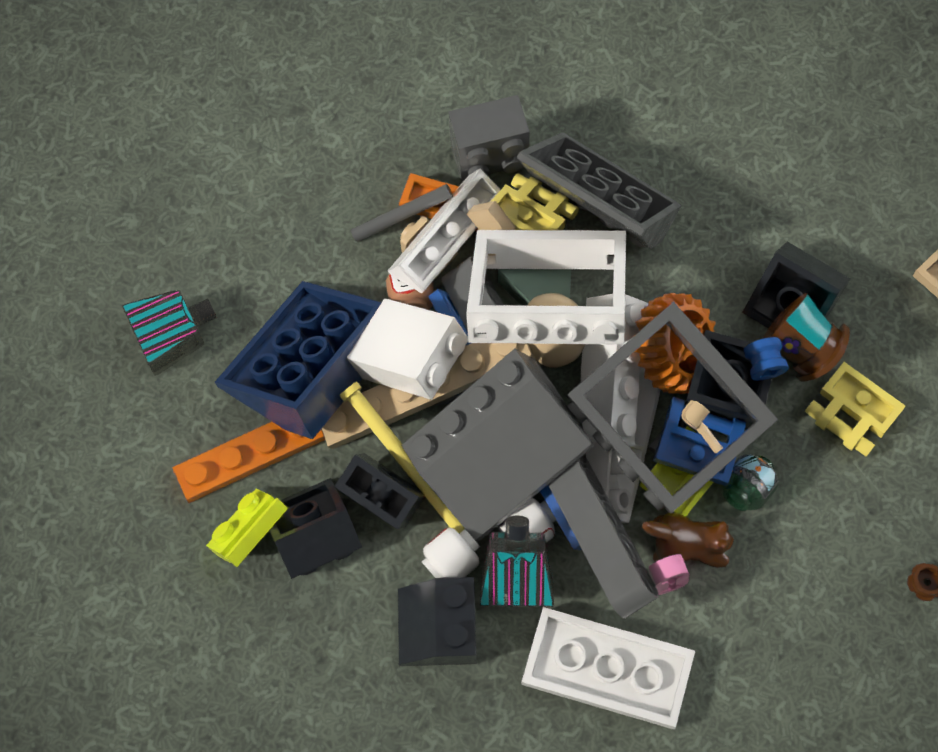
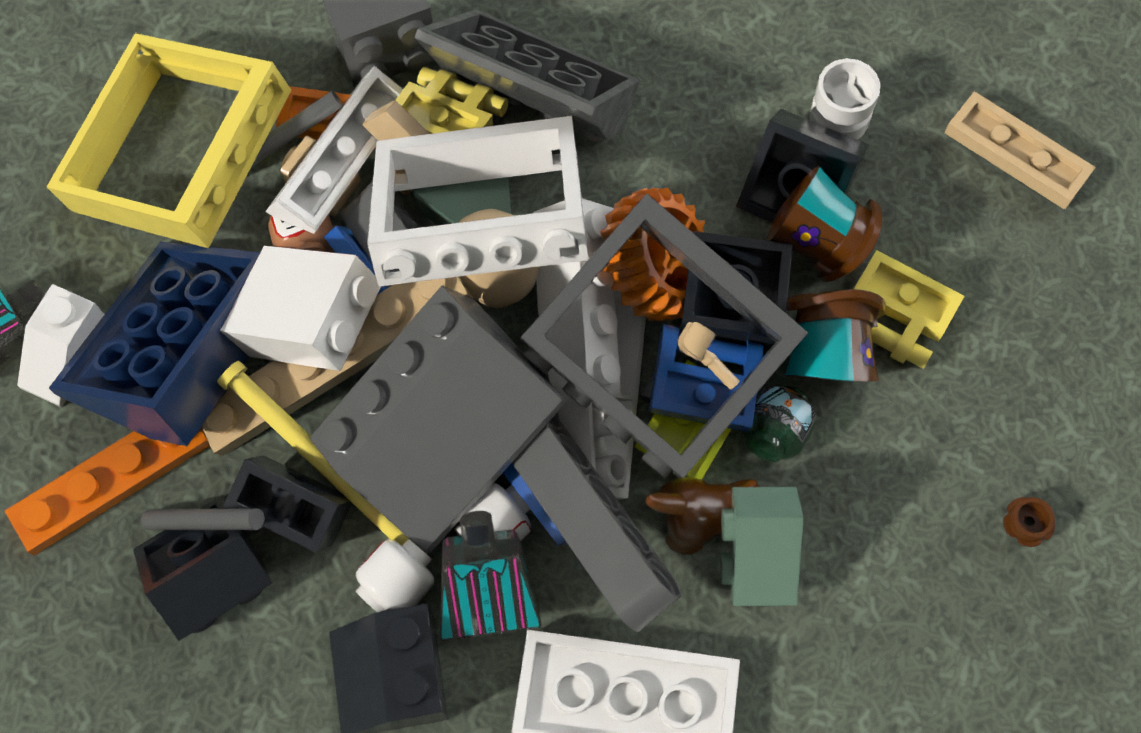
camera: 10 degrees left, 0 degrees up
(219, 347) = (53, 338): none -> white slope
(246, 527) = (119, 566): neon yellow plate -> none
(317, 493) = (203, 519): none -> dark grey bar
(362, 229) = (222, 168): none -> light yellow window
(669, 573) = (691, 560): bright pink beam -> none
(724, 571) = (764, 546): none -> sand green brick
(766, 358) = (778, 256): blue wheel -> none
(800, 423) = (837, 336): none -> hat
(838, 240) = (846, 97): none -> white wheel

